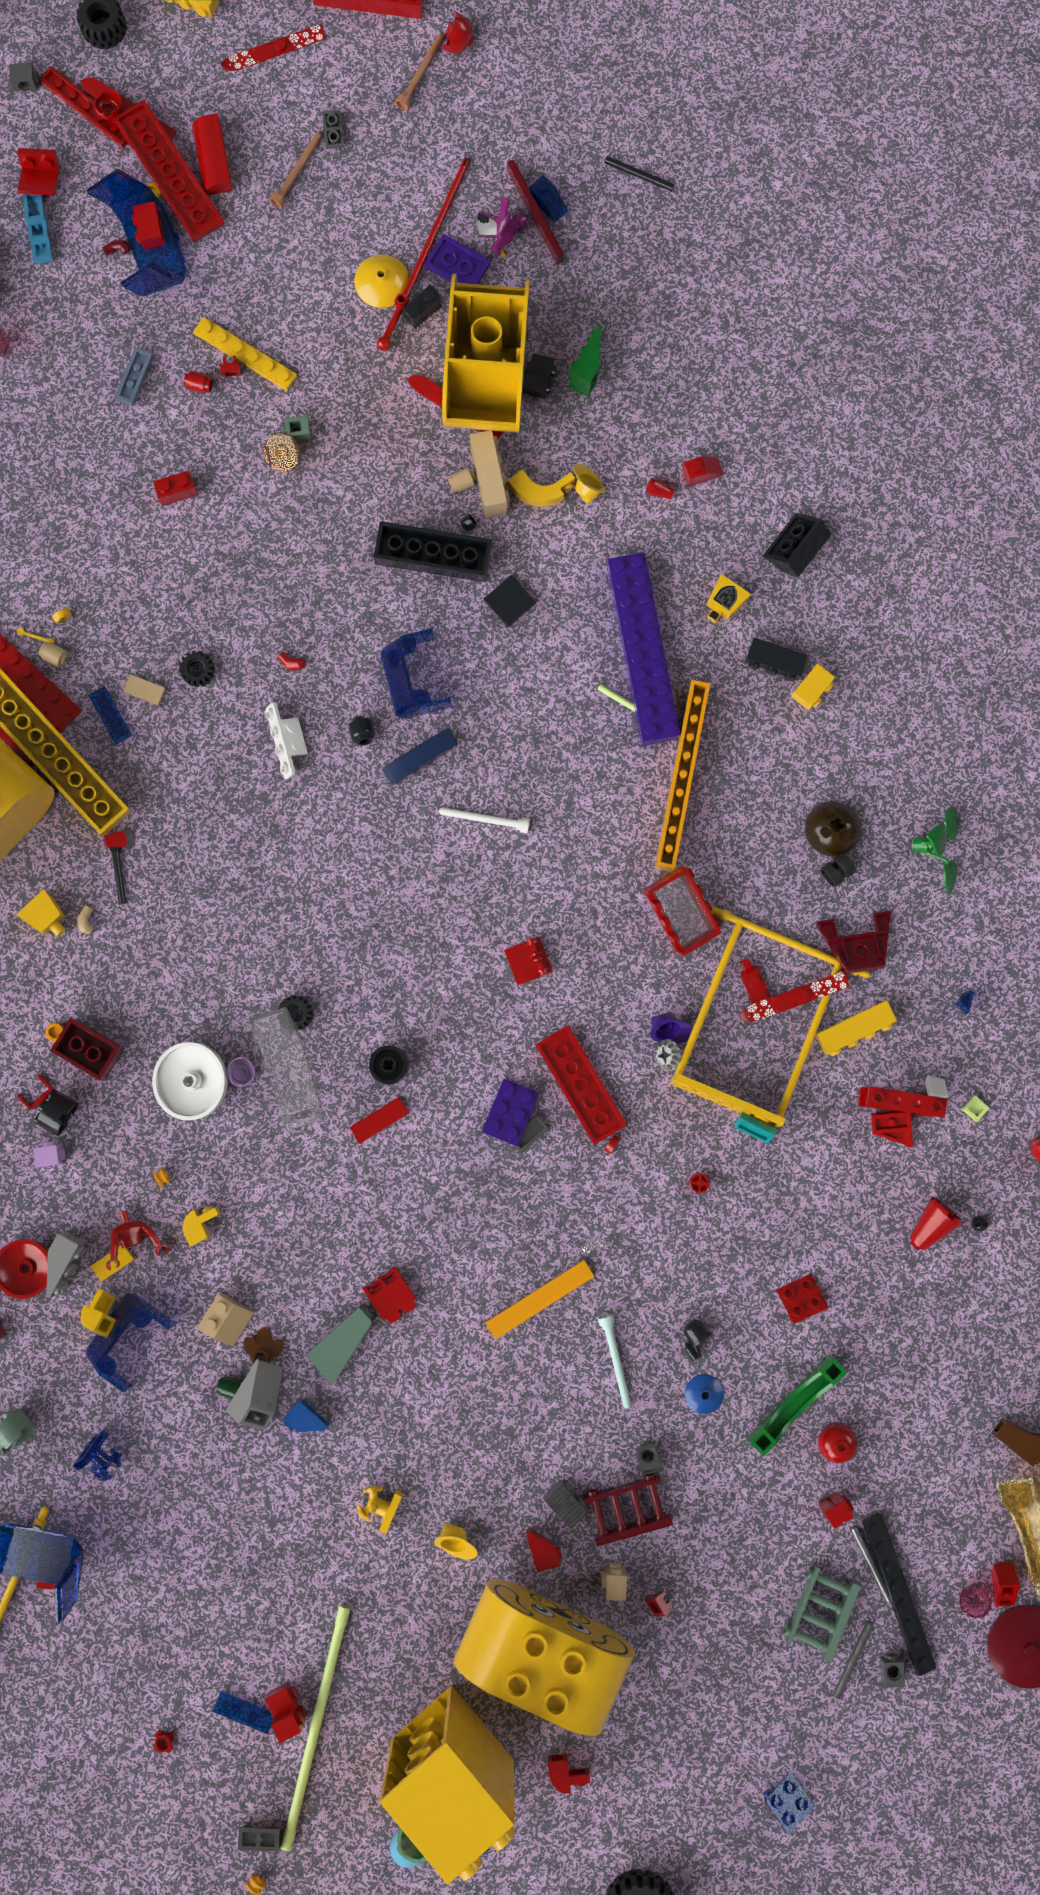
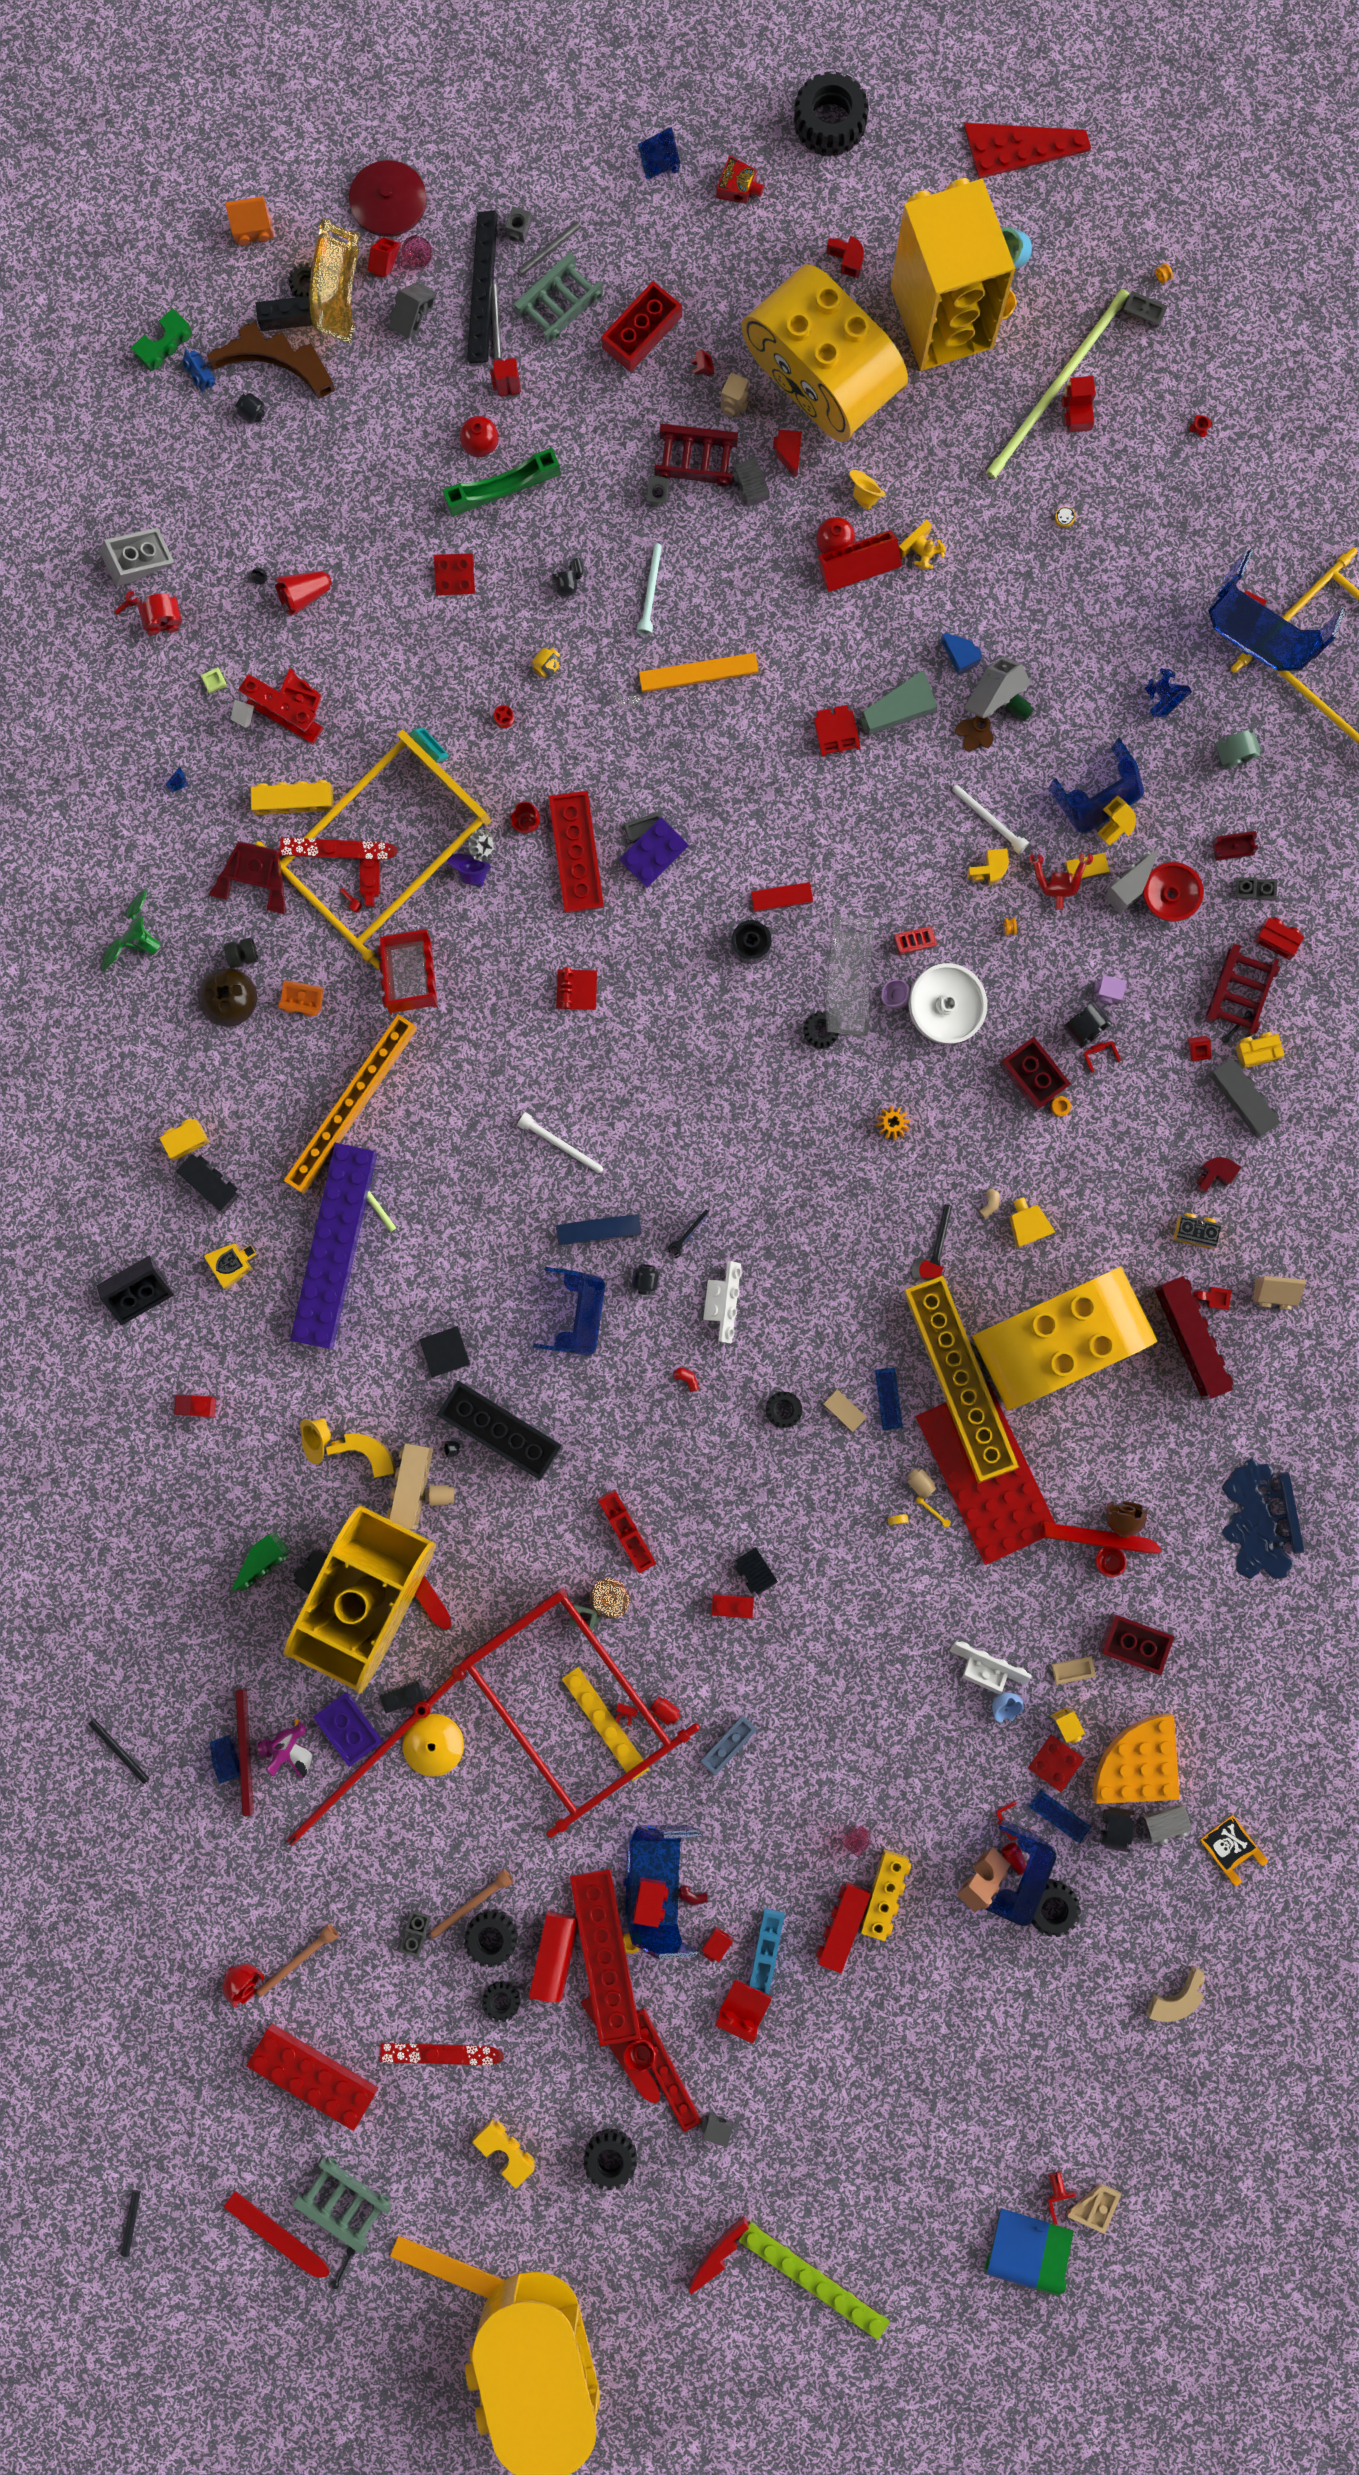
camera: 150 degrees left, 0 degrees up
(80, 216) = (716, 1945): none -> red brick
(167, 525) = (756, 1571): none -> black brick
(184, 1258) = (1017, 842): none -> white piece
(194, 949) = (896, 1129): none -> light orange gear
(225, 1319) = (1001, 771): tan slope -> none
(240, 95) = (492, 2010): none -> black tyre
(243, 1712) = (1118, 422): clear blue tile -> none
(257, 1121) = (909, 949): none -> red slope
(258, 1594) = (1064, 517): none -> tile
(268, 161) = (478, 1951): none -> black tyre
(291, 514) = (626, 1531): none -> red slope
(338, 781) = (679, 1244): none -> black flag
(347, 397) = (468, 1664): none -> red piece
(433, 1469) = (860, 561): none -> red brick
(465, 1483) = (834, 534): none -> red cylinder
(612, 1144) = (570, 784): red tile -> none
(634, 1091) = (522, 811): none -> red hair
(659, 489) = (246, 1404): red cone -> none
(682, 1249) = (546, 662): none -> yellow head
(700, 1384) = (582, 537): blue dish -> none
(701, 1805) = (738, 182): none -> red torso
(731, 1616) = (641, 326): none -> red brick
(757, 955) = (354, 904): none -> red hand
(767, 851) = (301, 998): none -> orange bracket
(956, 1541) = (410, 307): none -> dark grey brick

